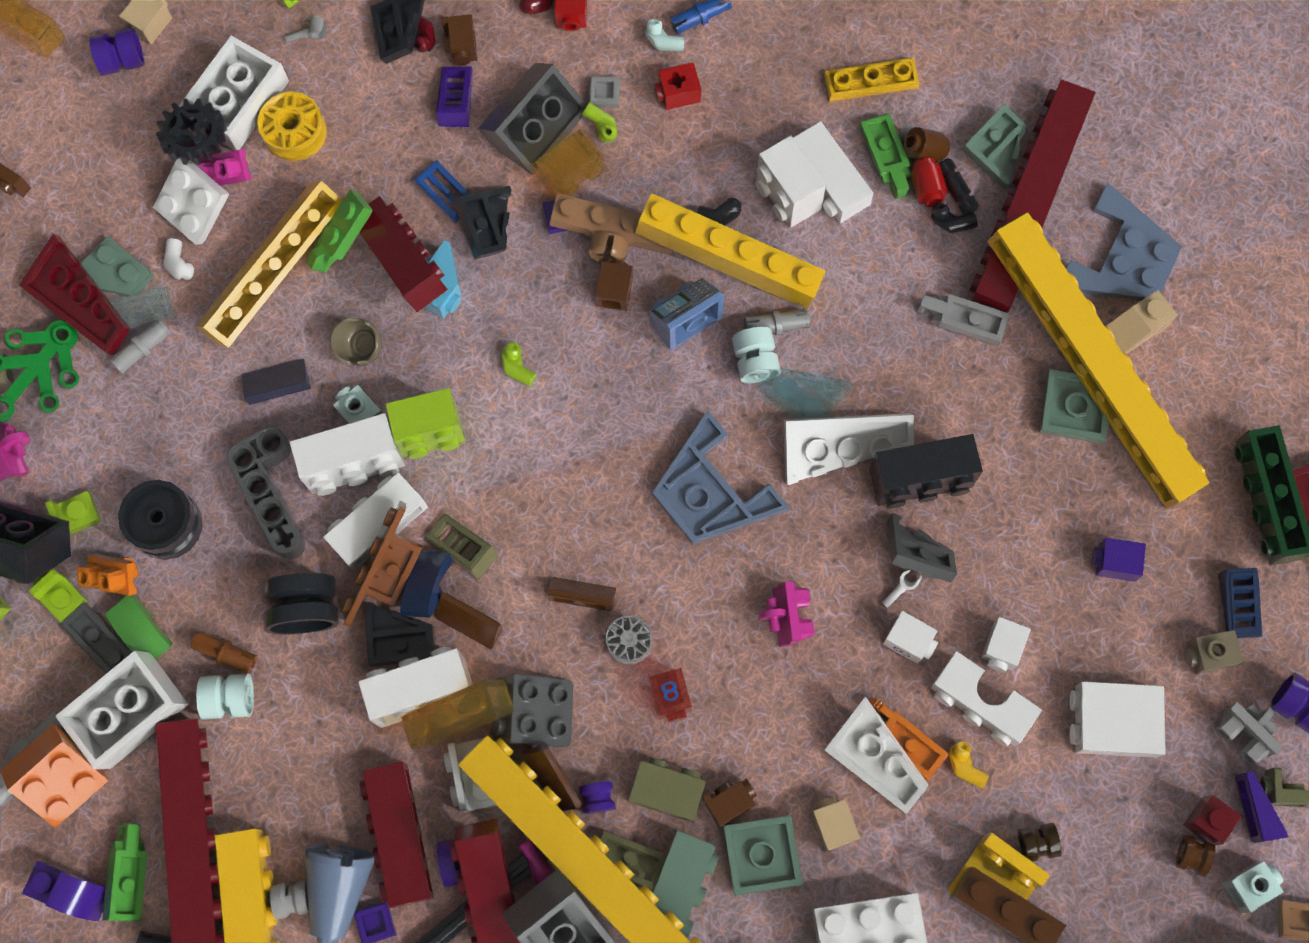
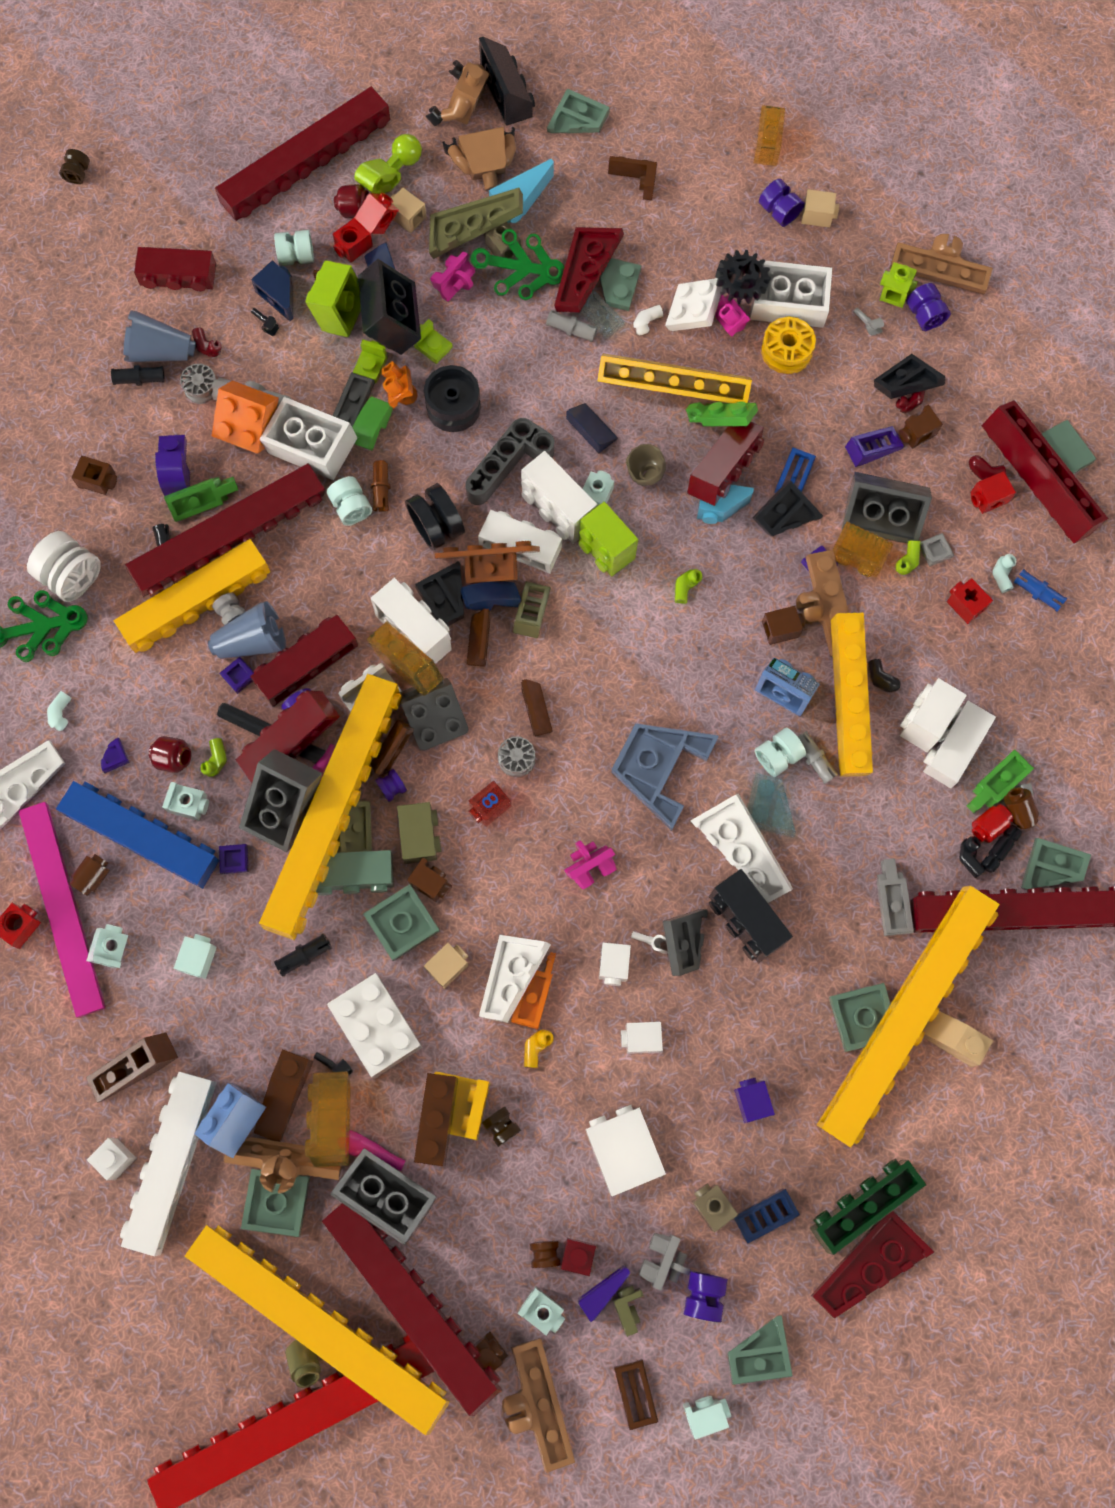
camera: 60 degrees right, 0 degrees up
(854, 81) = (1068, 756): yellow tile -> none
(959, 687) = (585, 1064): white arch -> none
(1138, 258) = (1015, 1018): sand blue wing -> none

